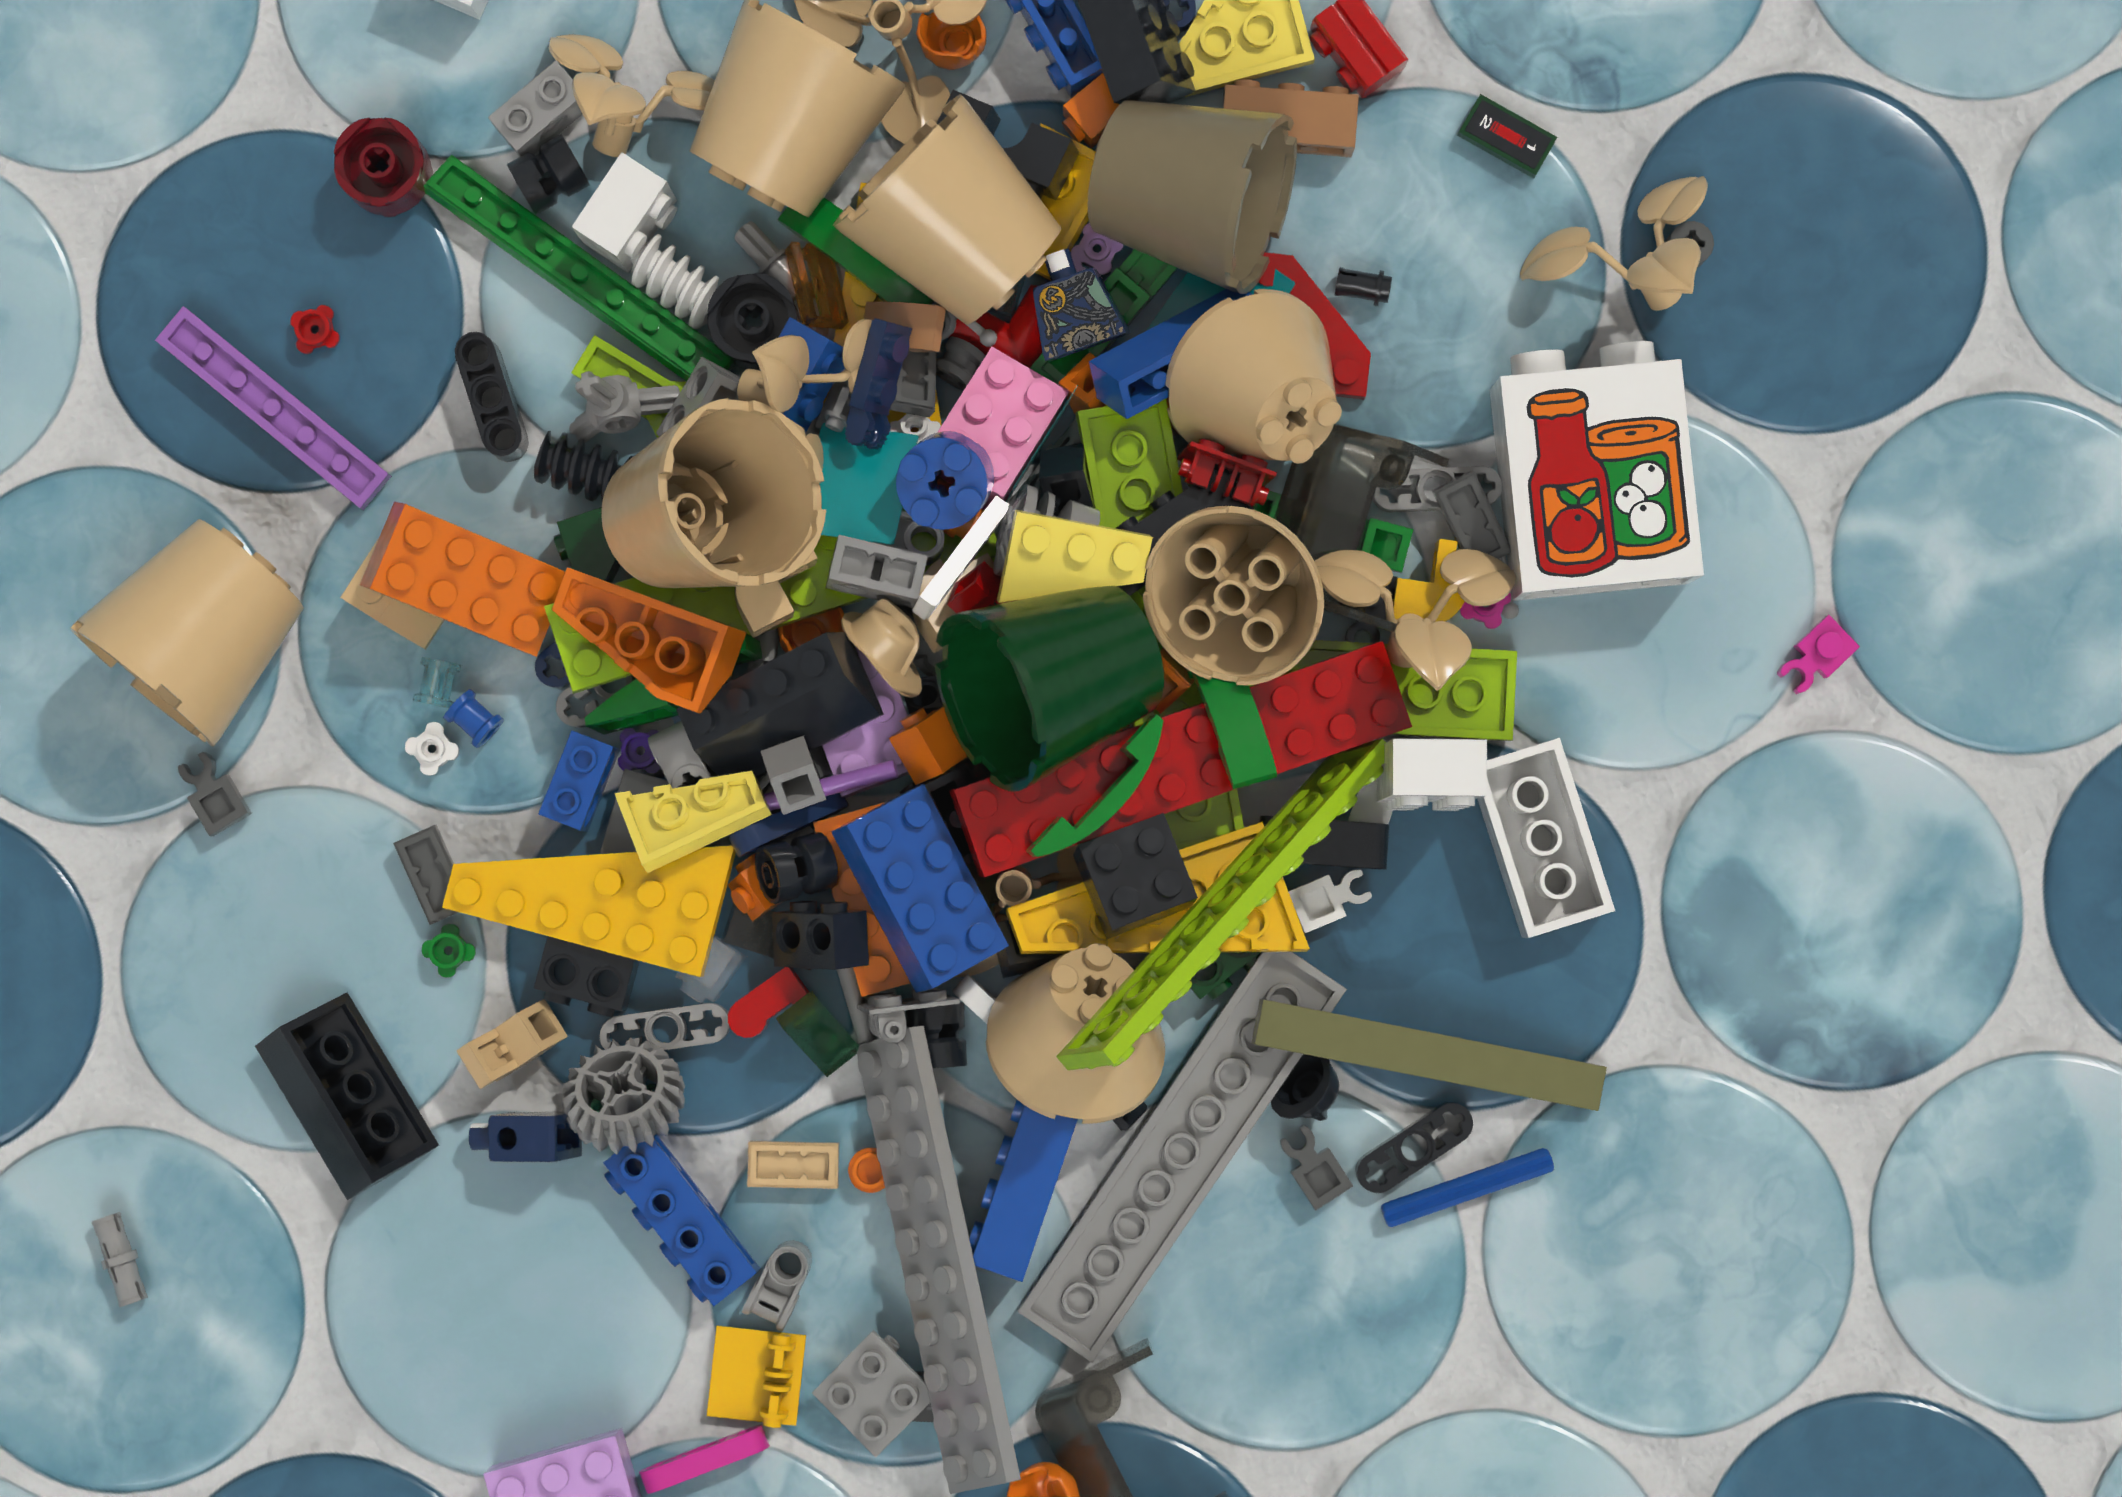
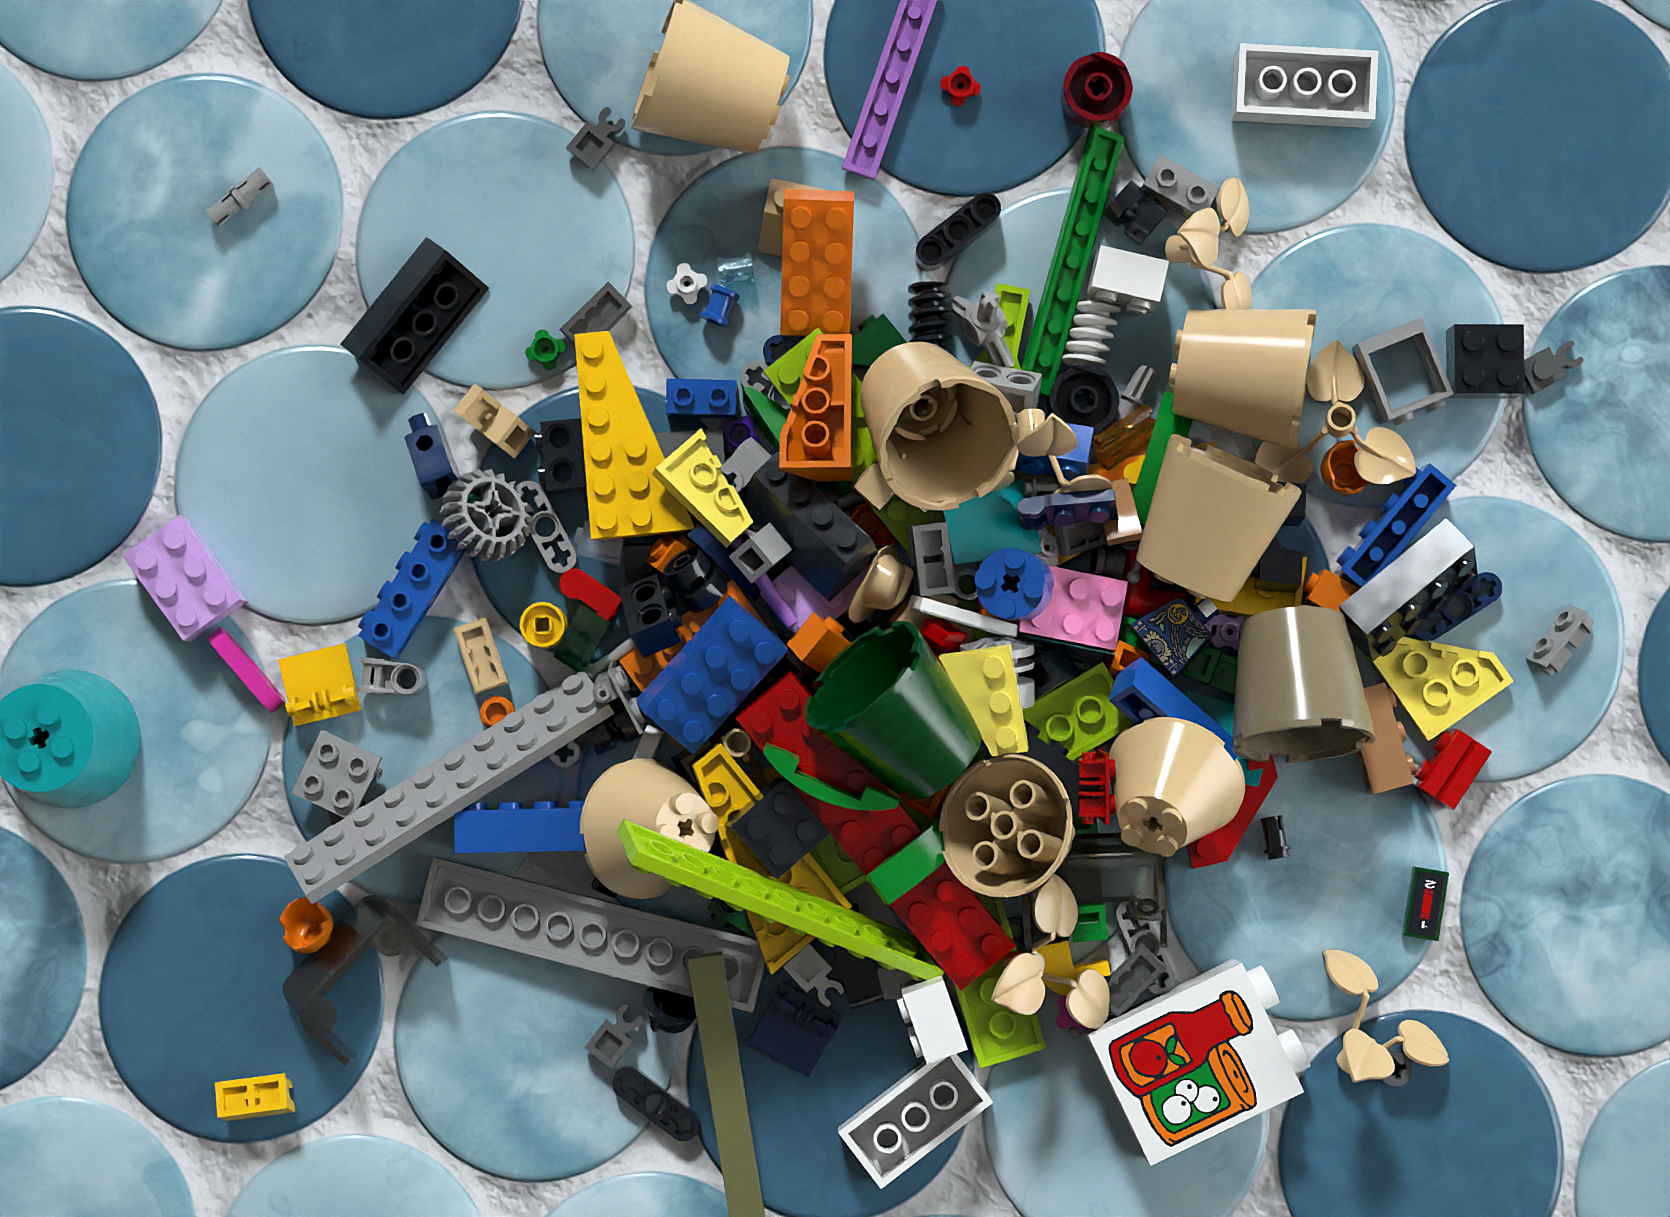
camera: 65 degrees right, 0 degrees up
(784, 1073) = (543, 625): none -> yellow wheel
(961, 1099) = (572, 760): none -> light grey bush
(1385, 945) = (795, 1029): none -> dark blue hinge
(1467, 1187) = (641, 1153): blue axle -> none

